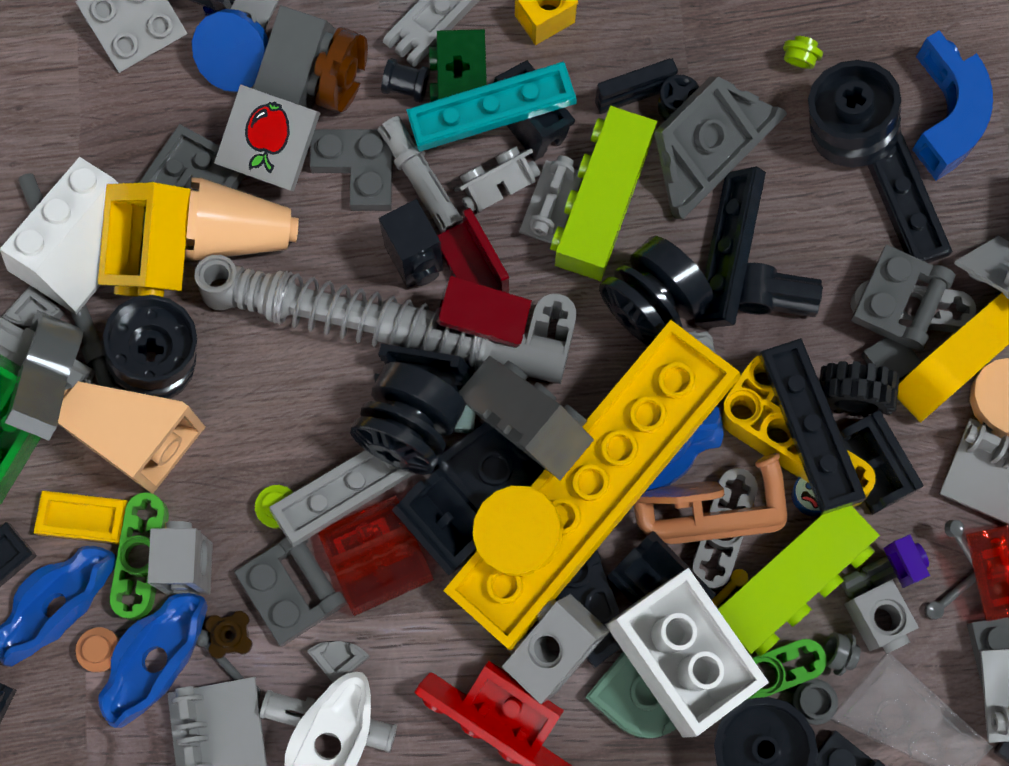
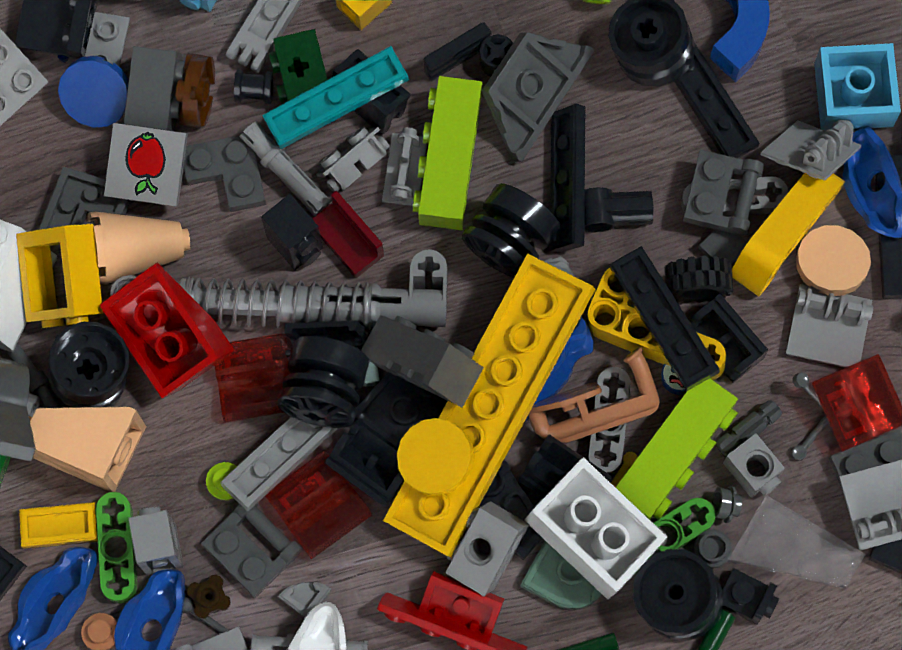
camera: 10 degrees left, 0 degrees up
(246, 324) = (166, 330): none -> red slope
(330, 394) = (252, 377): none -> clear red slope
(484, 311) = (367, 278): dark red panel -> none
(908, 560) = (766, 414): dark purple plate -> none

